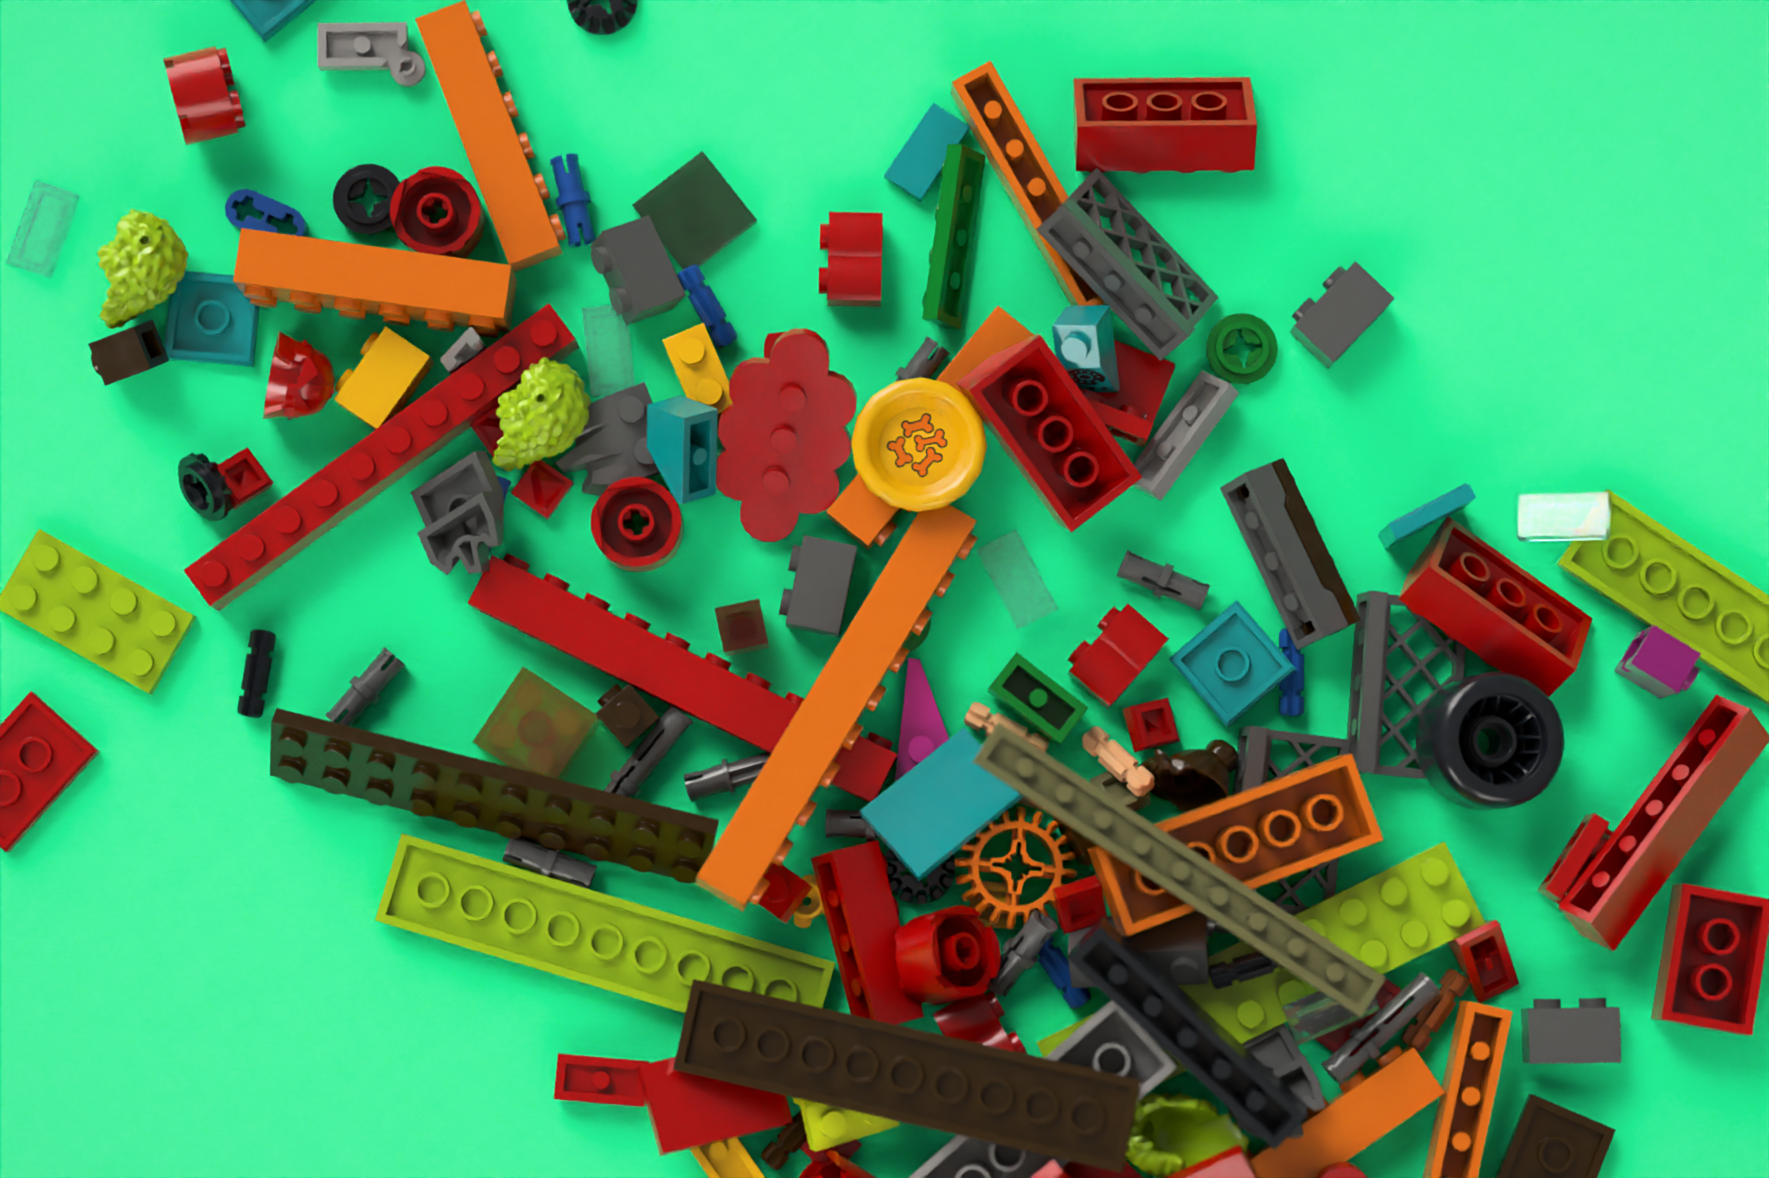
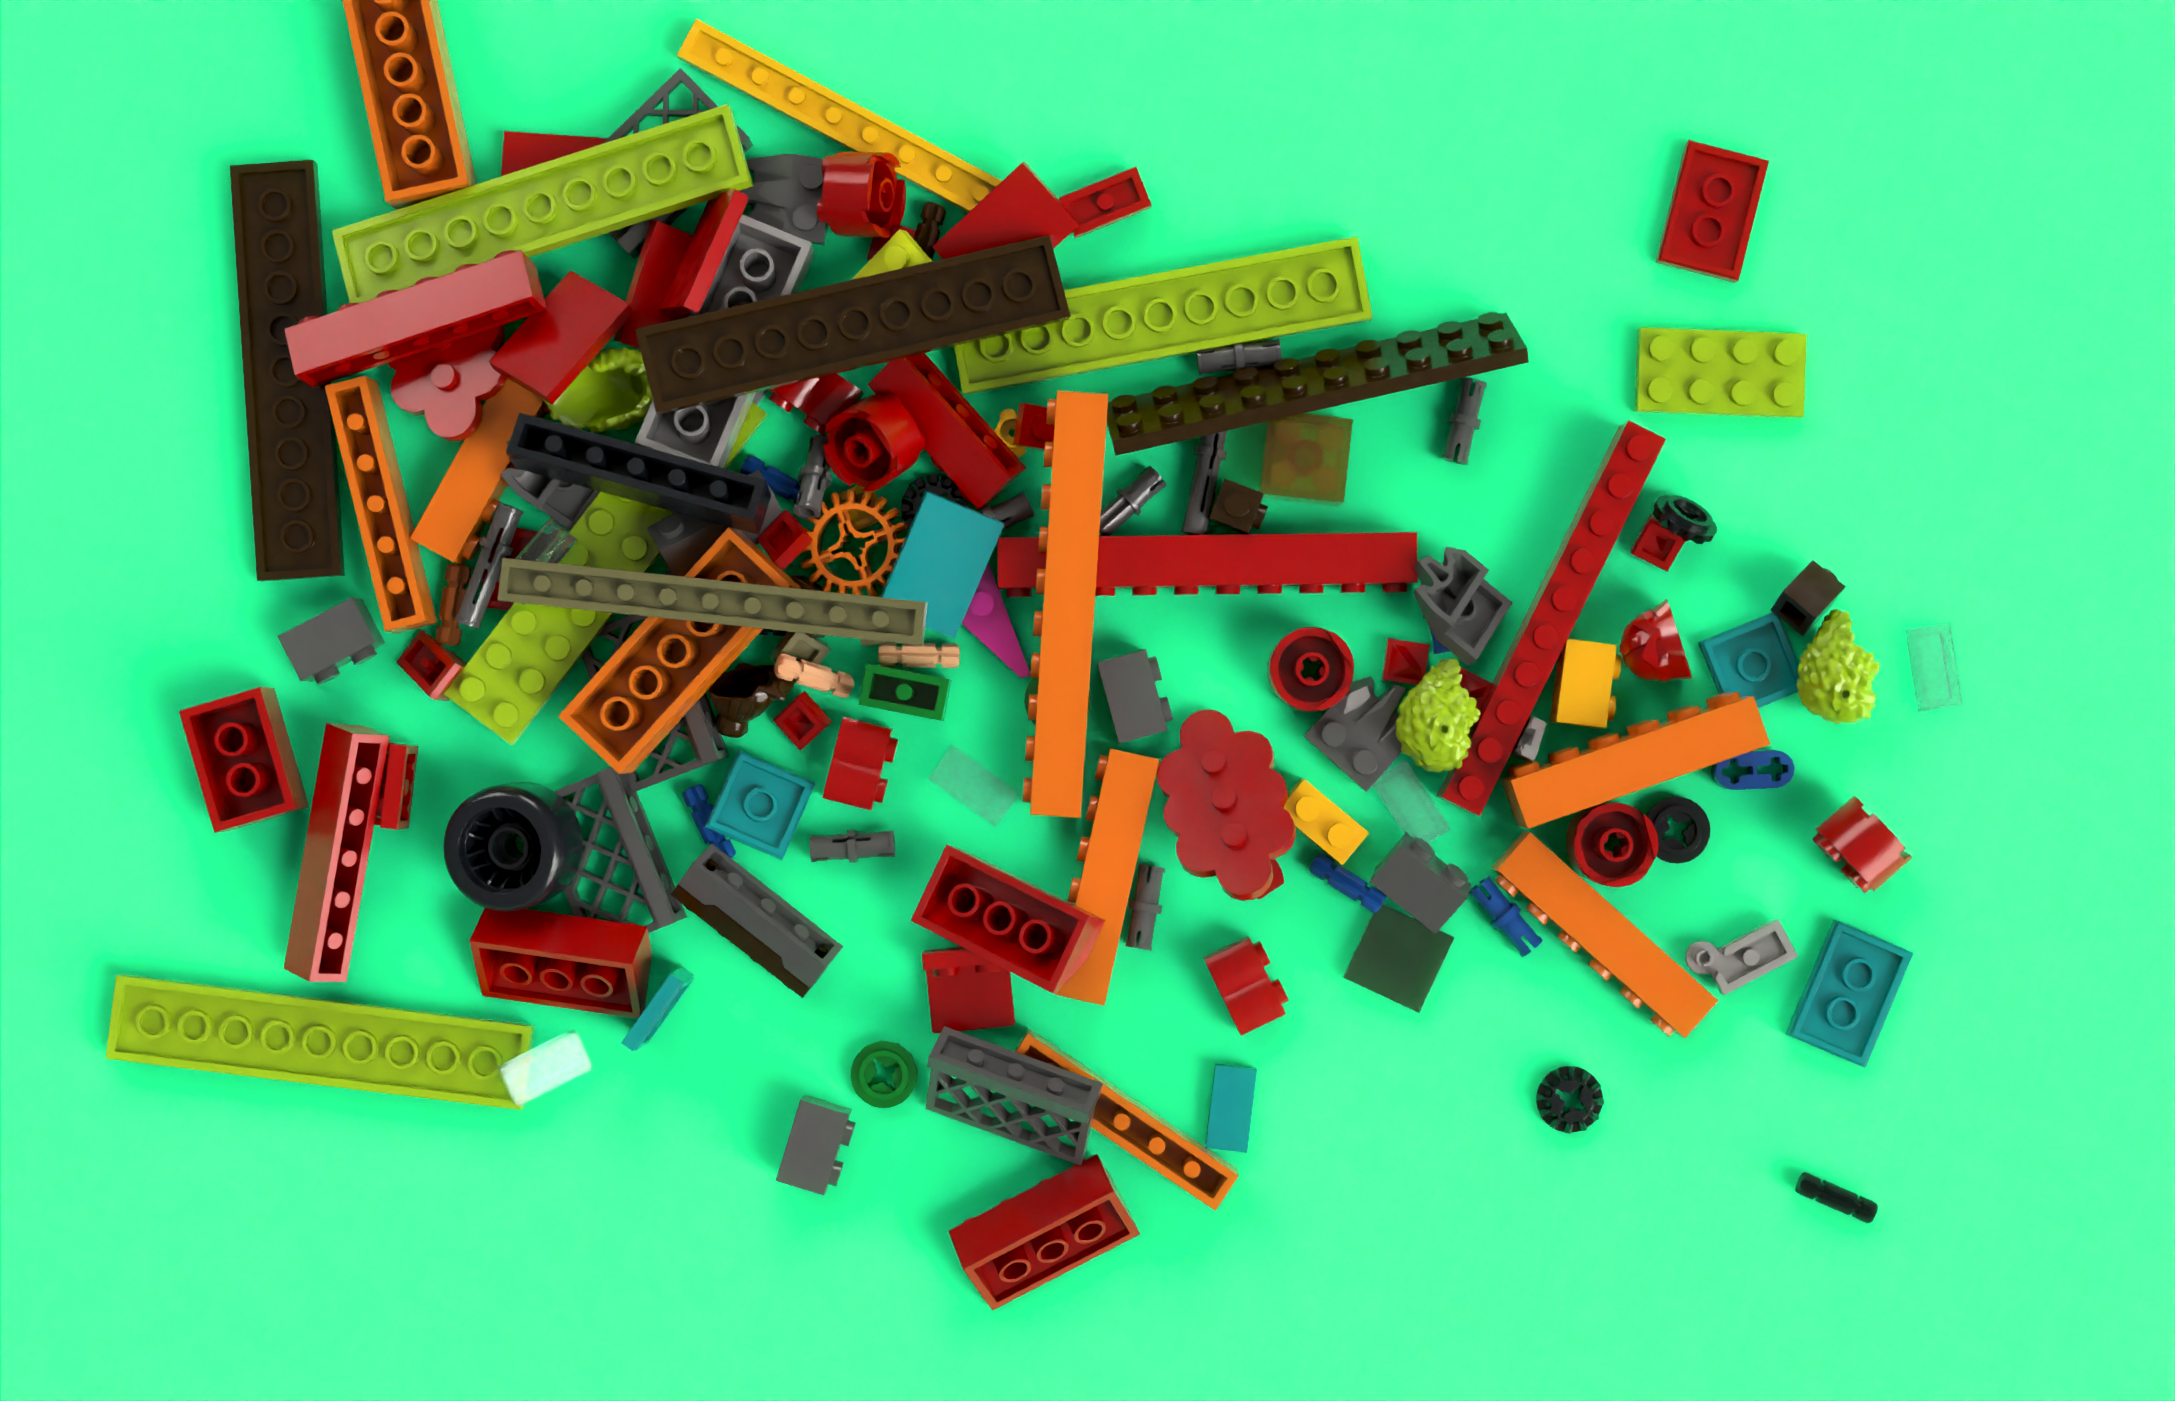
camera: 150 degrees right, 5 degrees up
(256, 673) = (1560, 389): black axle -> none
(684, 446) = (1304, 752): teal slope -> none
(742, 627) = (1179, 627): clear red brick -> none
(919, 444) = (1109, 851): yellow piece -> none
(953, 236) = (1171, 1046): green plate -> none
(1087, 347) = (1011, 1006): teal slope -> none
(1183, 433) = (896, 977): light grey plate -> none
(1241, 969) = (625, 553): black axle -> none
(1659, 663) = (405, 983): magenta brick -> none

